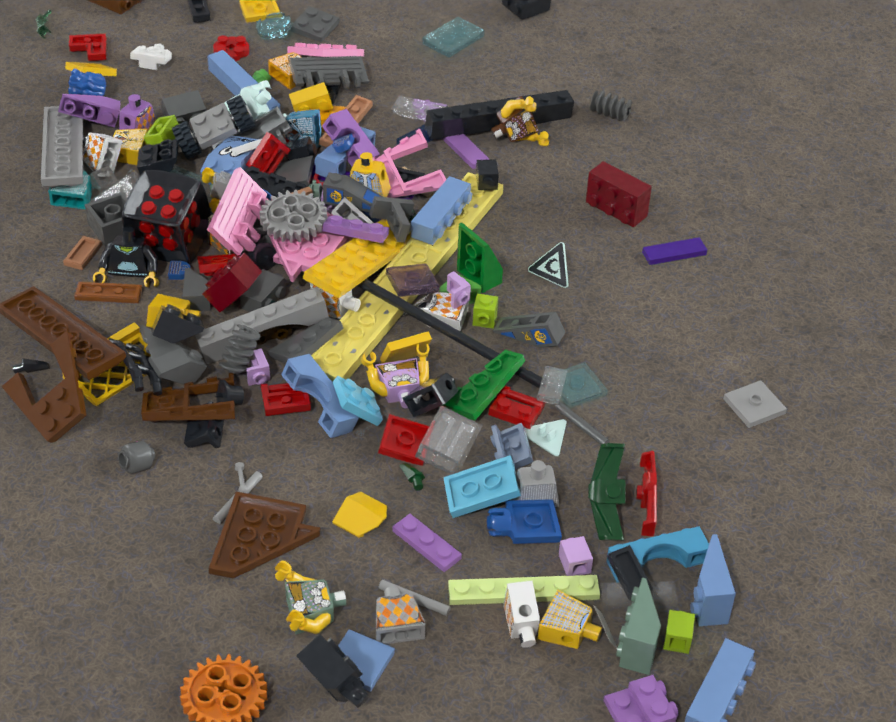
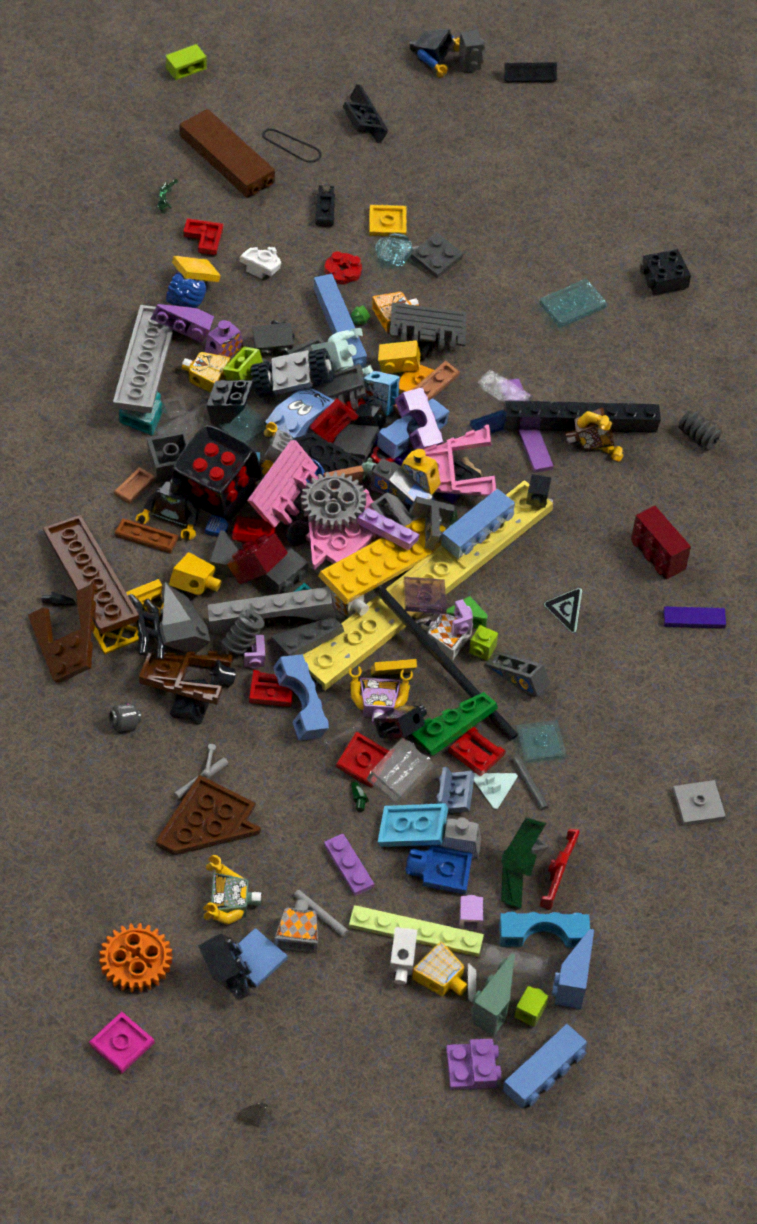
camera: 15 degrees right, 10 degrees up
(101, 151) = (179, 375): white torso -> none
(175, 326) = (192, 594): black slope -> none
(246, 147) = (316, 406): white sticker -> none
(325, 50) = (434, 296): bright pink plate -> none
(343, 143) = (409, 424): blue tile -> none
(357, 400) = (332, 711): medium azure plate -> none
(360, 514) = (301, 822): yellow slope -> none
(477, 260) = (494, 589): green slope -> none
(552, 385) = (515, 738): clear plate -> none
(627, 569) = (508, 939): black tile -> none

